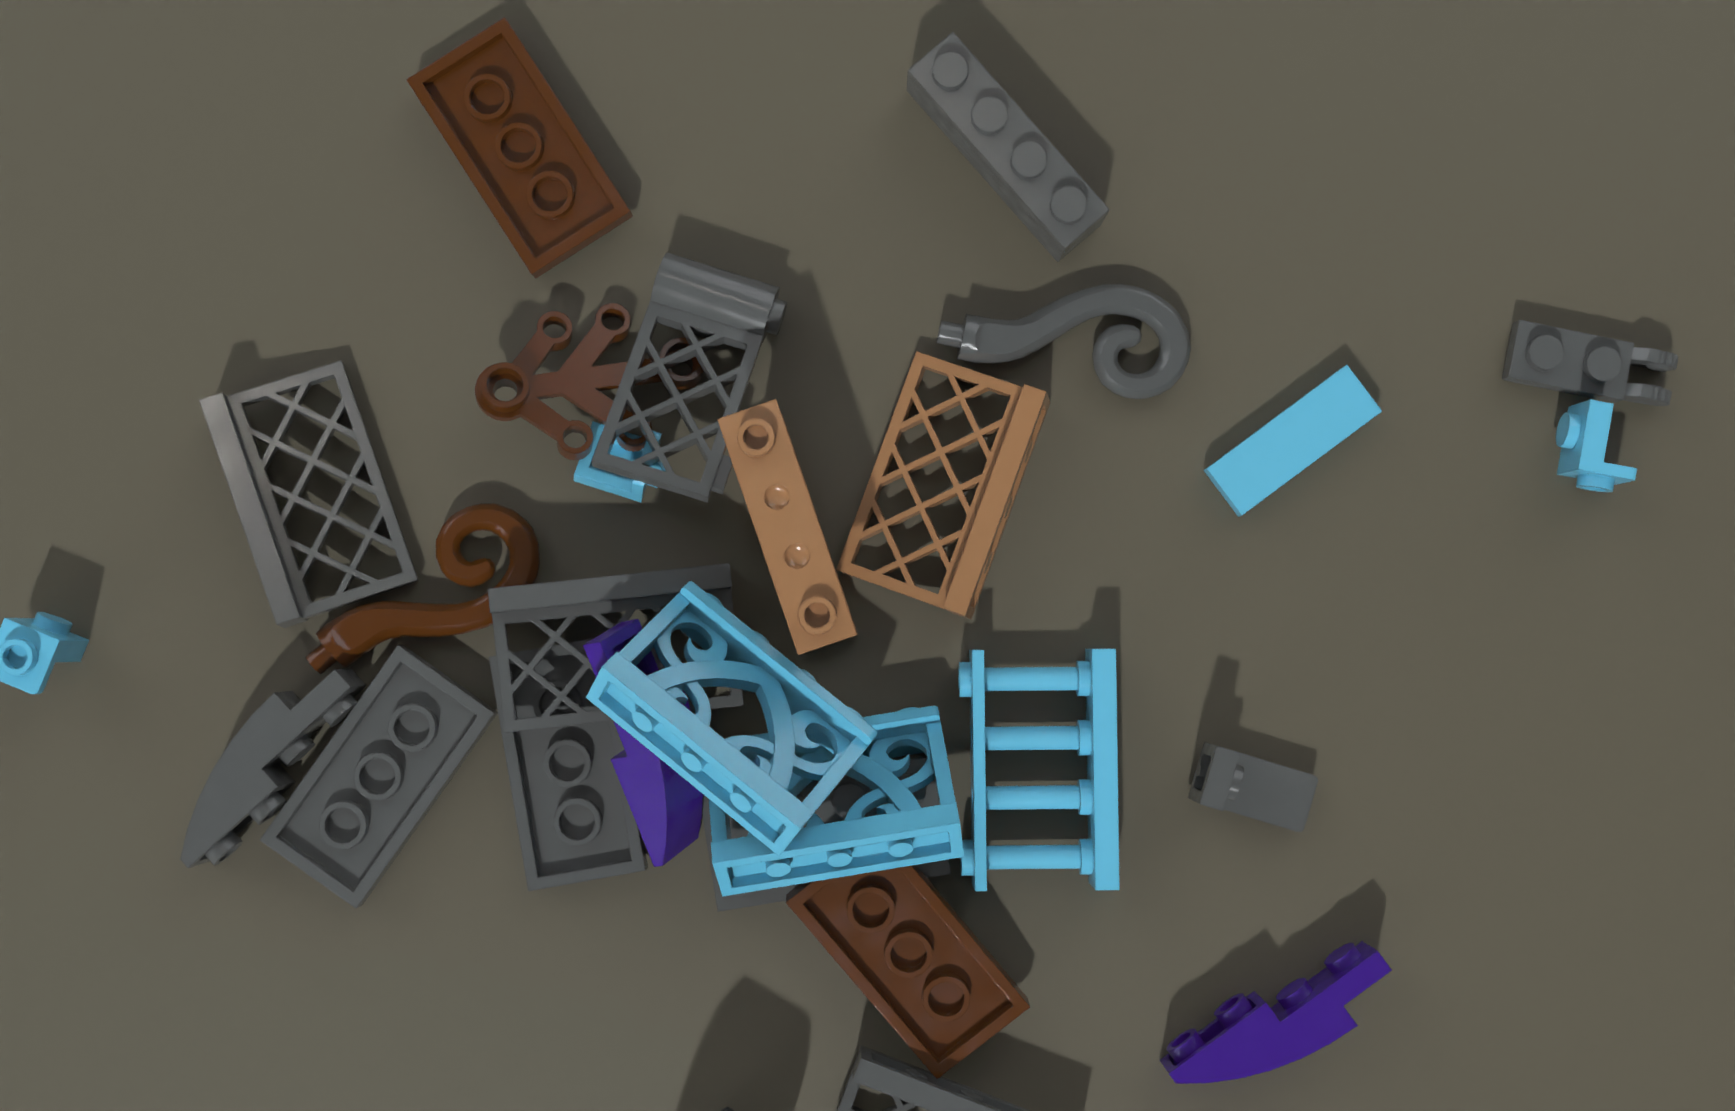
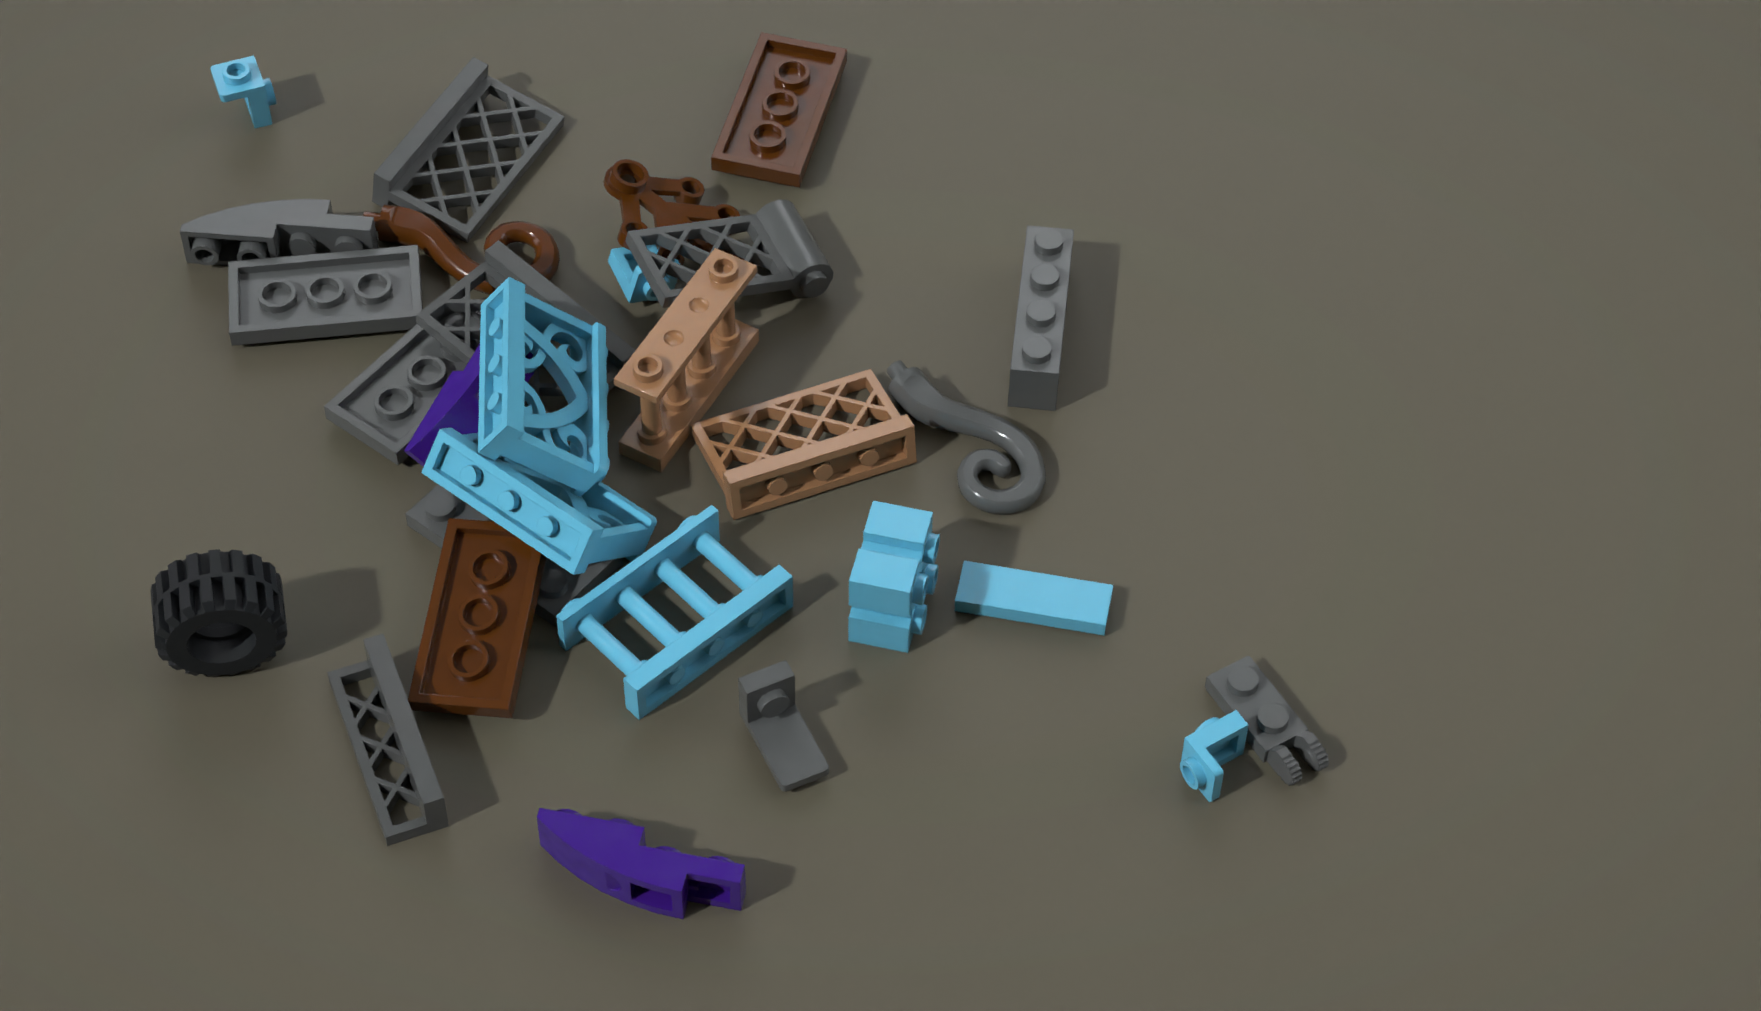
camera: 45 degrees right, 35 degrees down
(1196, 563) = (892, 577): none -> medium azure brick

